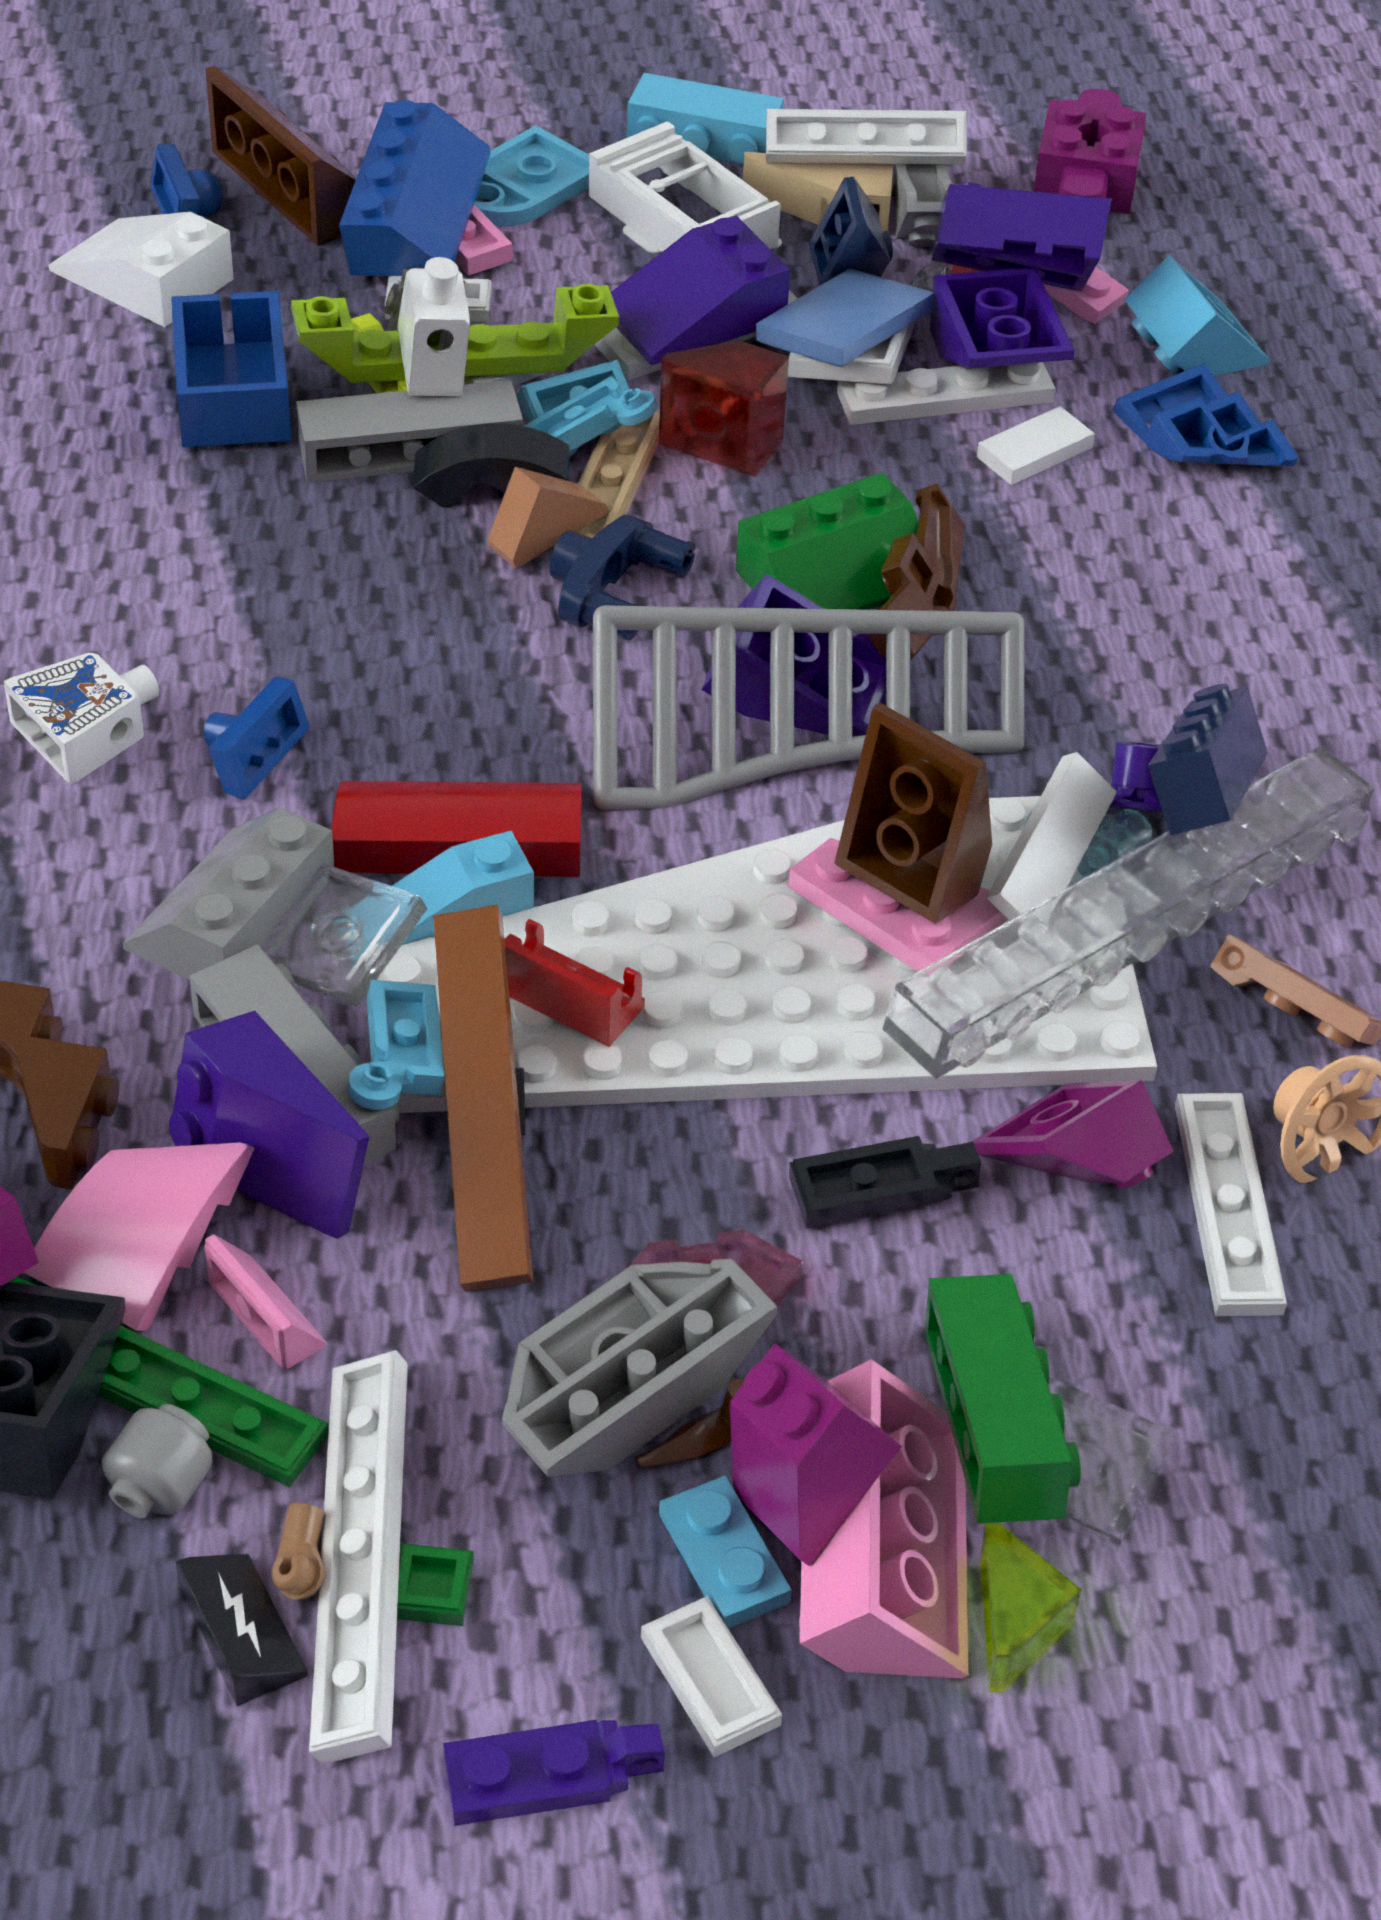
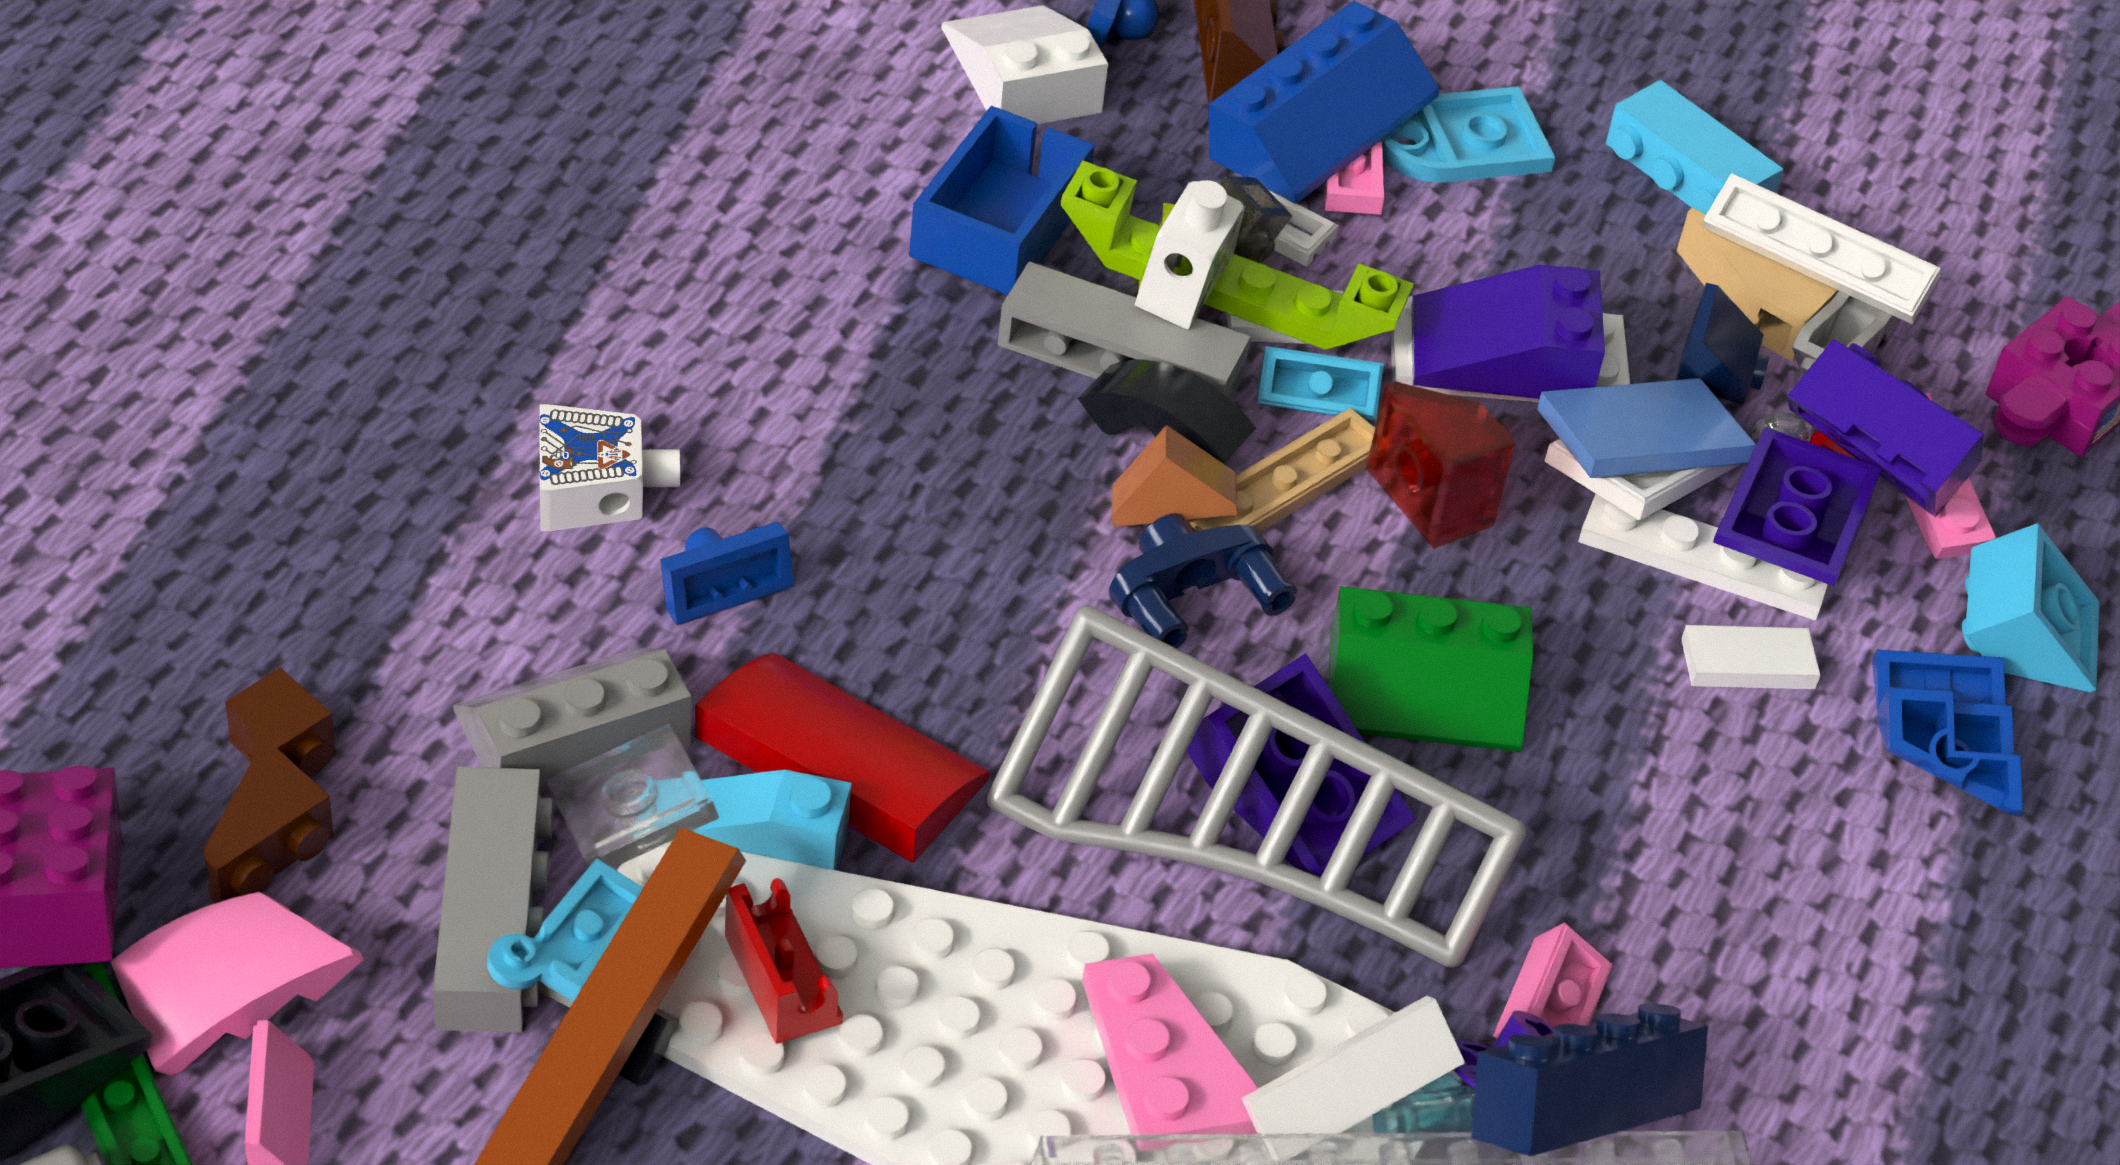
camera: 30 degrees right, 0 degrees up
(253, 1090) = (397, 919): dark purple slope -> none
(596, 413) = (1307, 406): medium azure hinge -> none
(649, 216) = (1628, 289): white piece -> none
(917, 817) = (1197, 988): reddish brown slope -> none
(924, 568) = (1497, 737): reddish brown plate -> none
(1095, 721) = (1558, 980): none -> bright pink slope

